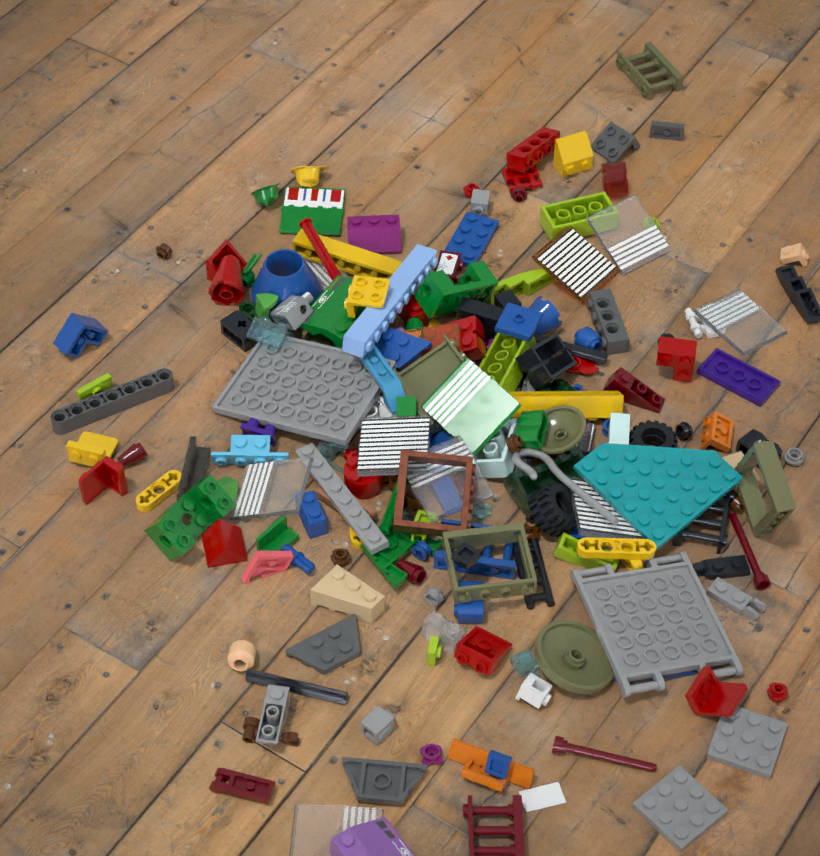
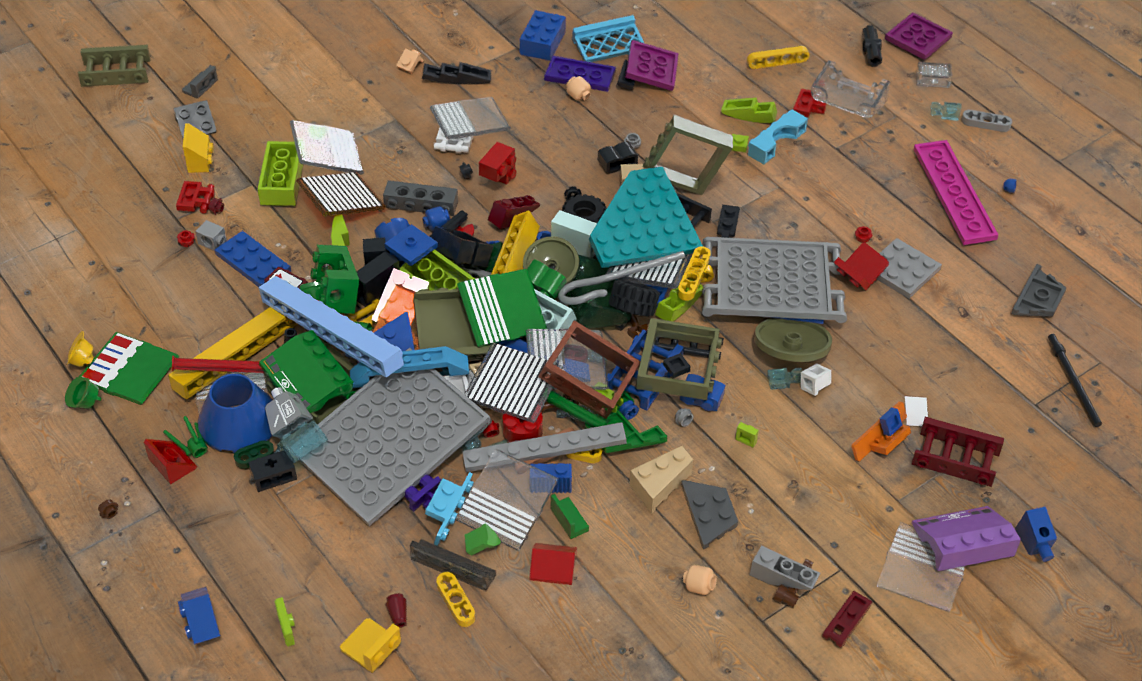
camera: 70 degrees left, 0 degrees up
(100, 477) = (427, 630): red bracket -> none
(112, 401) = (314, 616): dark grey beam -> none
(202, 504) = (527, 593): green plate -> none
(227, 283) = (201, 457): red cone -> none
(264, 303) = (262, 434): bright green tile -> none
(267, 563) = (598, 529): coral wing -> none
(297, 686) = (746, 549): black axle -> none
(299, 559) = (598, 505): blue axle -> none
(340, 557) = (608, 473): reddish brown plate -> none
(366, 292) = (323, 335): yellow bracket -> none
(375, 233) = (202, 325): magenta slope -> none
(377, 725) = (815, 497): light grey brick -> none
(382, 780) = (873, 512): dark grey wing -> none
(406, 406) = (472, 357): green tile -> none
(415, 572) = (650, 421): dark red cone -> none
(435, 751) = (853, 466): magenta plate -> none
(444, 628) = (726, 421): clear brick -> none
(482, 650) = (760, 400): red plate -> none
(514, 443) = (558, 293): reddish brown plate -> none
(532, 150) = (170, 173): red brick -> none
(562, 746) = (874, 380): dark red piece -> none
(615, 179) = (249, 132): clear red brick -> none
(680, 808) = (954, 329): light grey plate -> none
(717, 432) = (584, 176): orange bracket -> none
(735, 599) = (763, 226): light grey hinge -> none
(738, 377) = (532, 140): dark purple tile -> none
(761, 580) = (751, 204): dark red piece -> none

